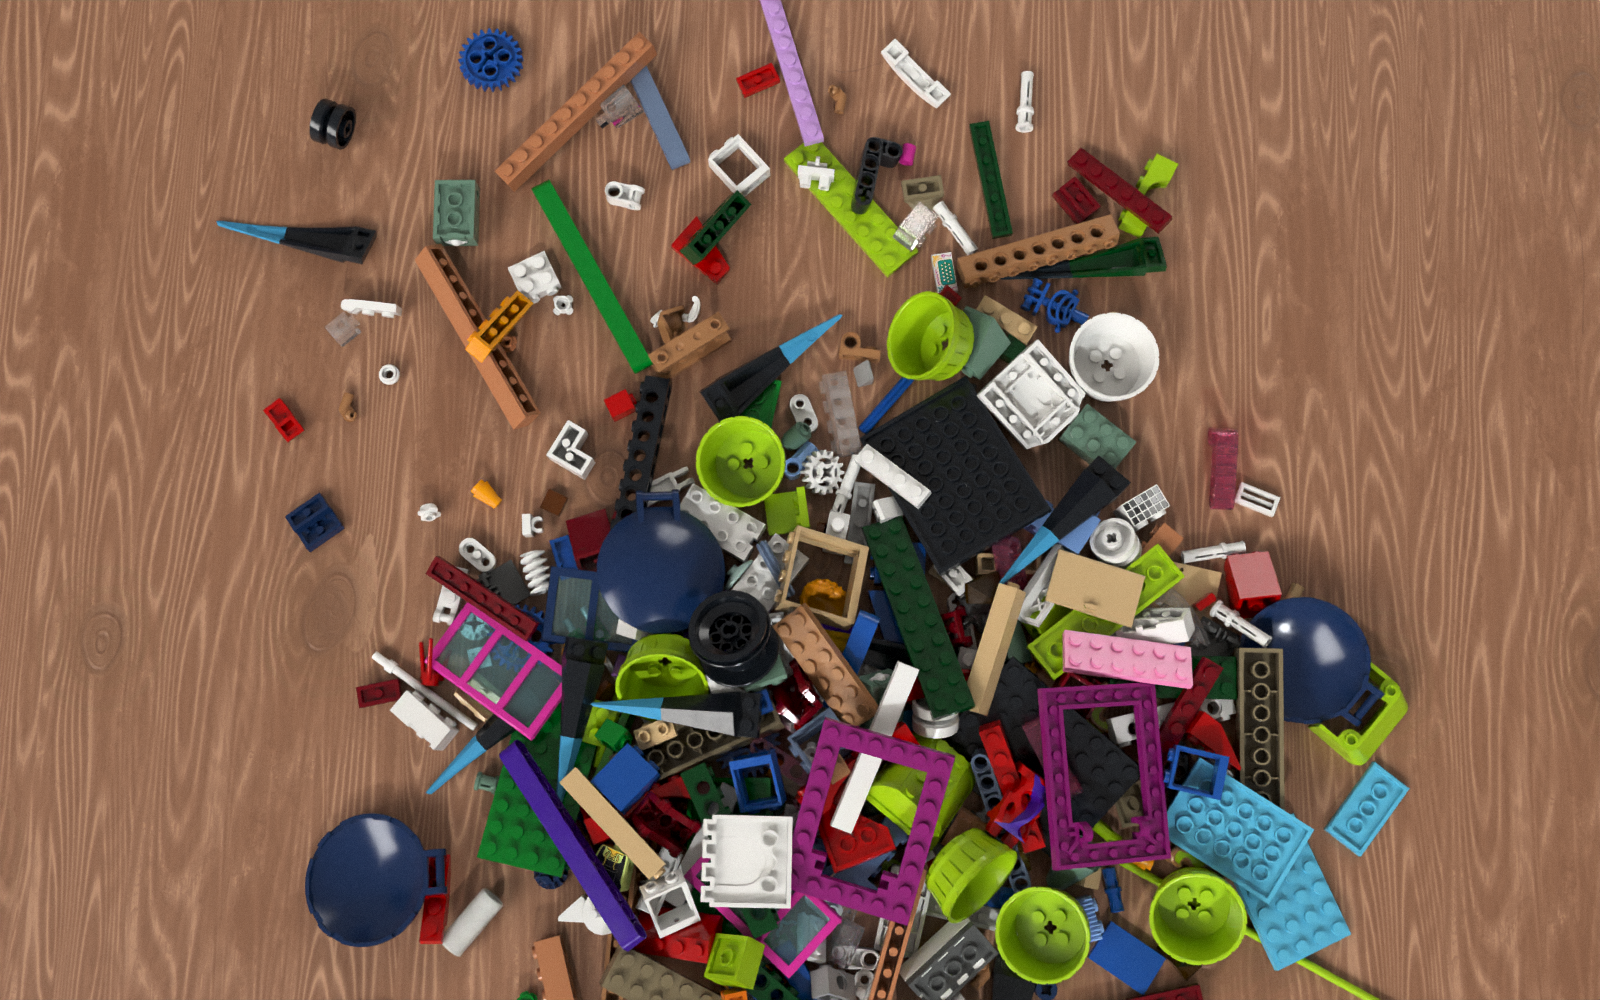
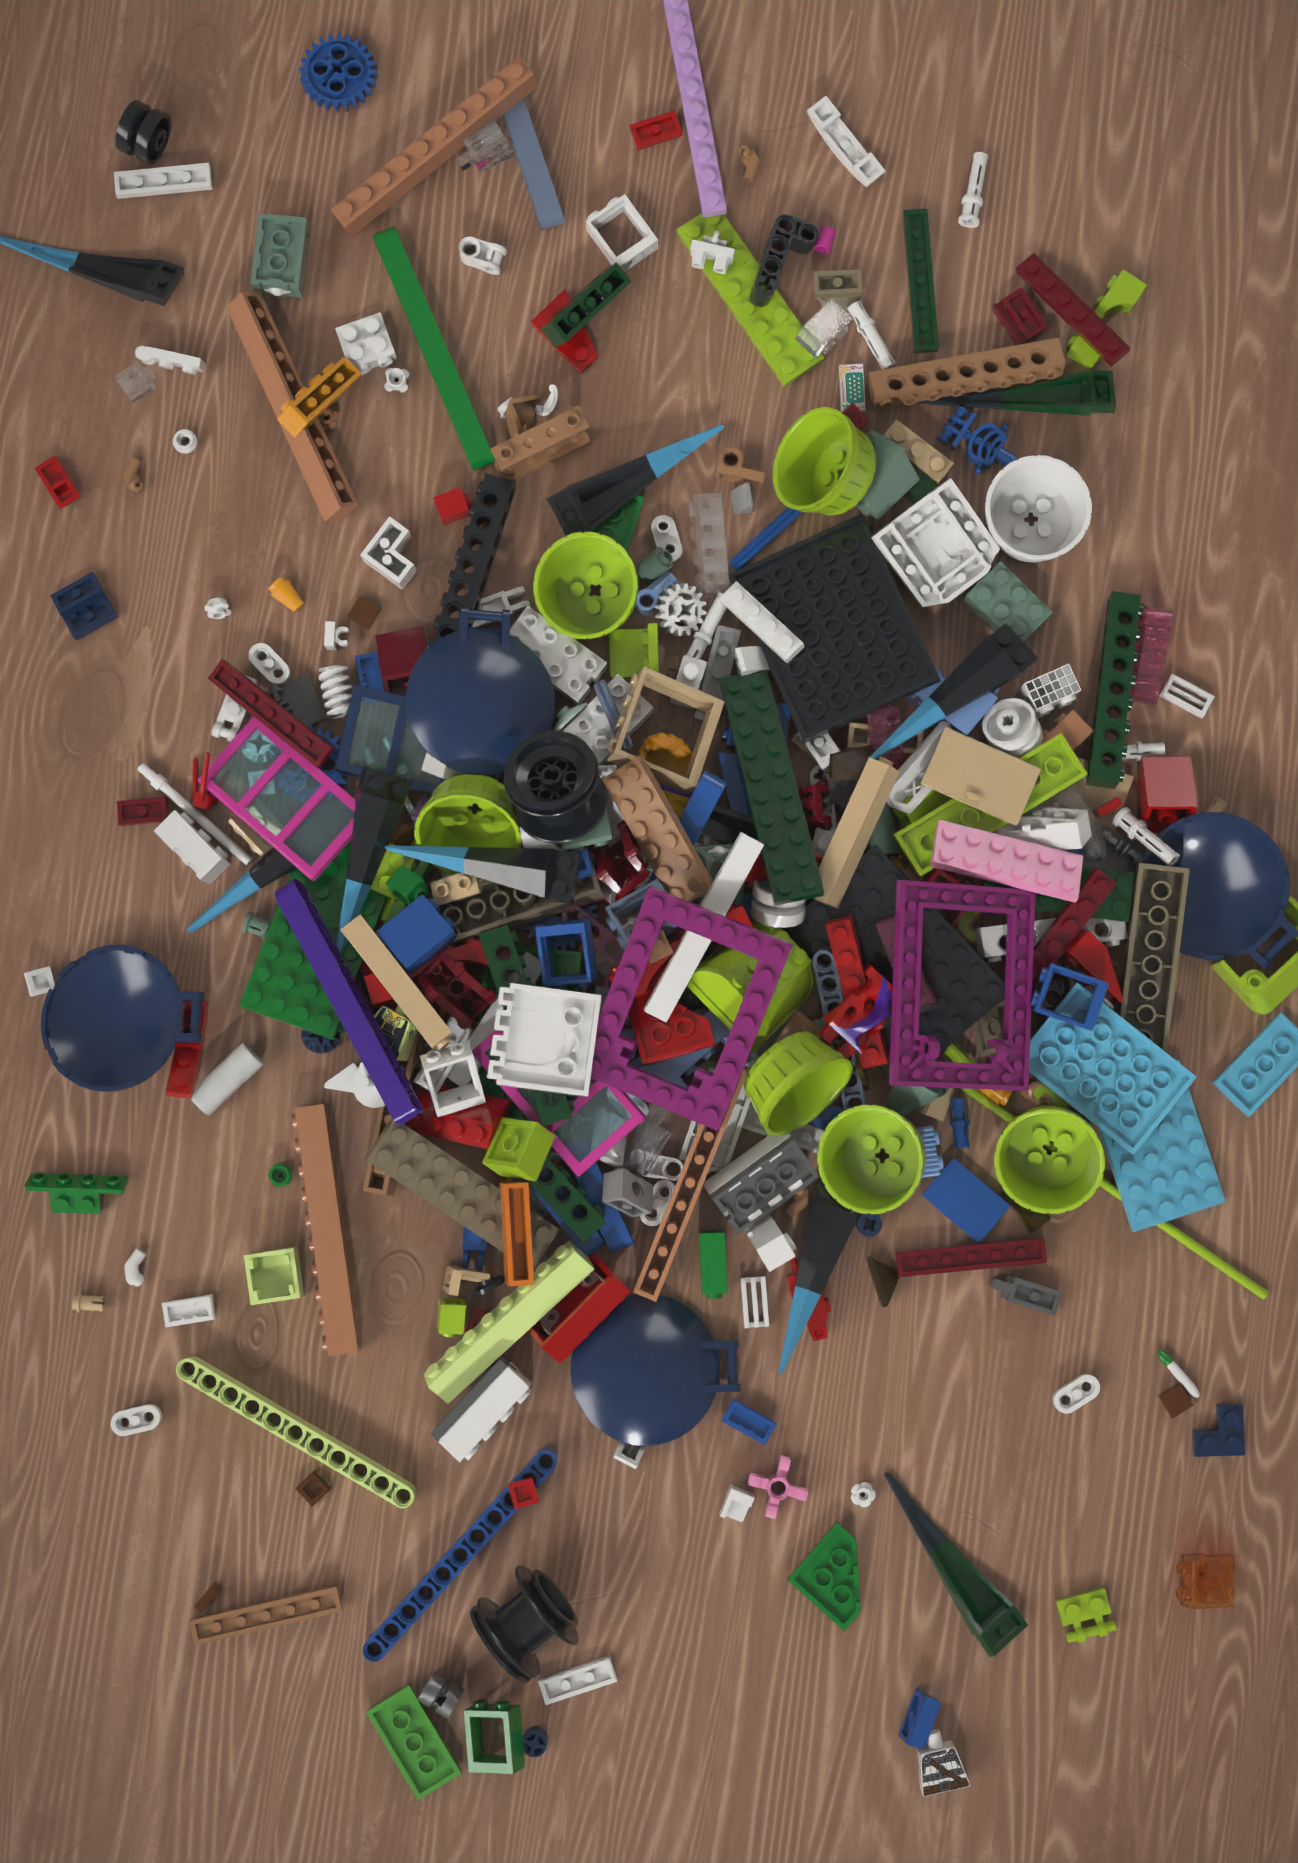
camera: 10 degrees right, 5 degrees up
(301, 852) = (39, 981): none -> white plate
(352, 161) = (163, 180): none -> white plate
(1189, 430) = (1118, 605): none -> dark green brick

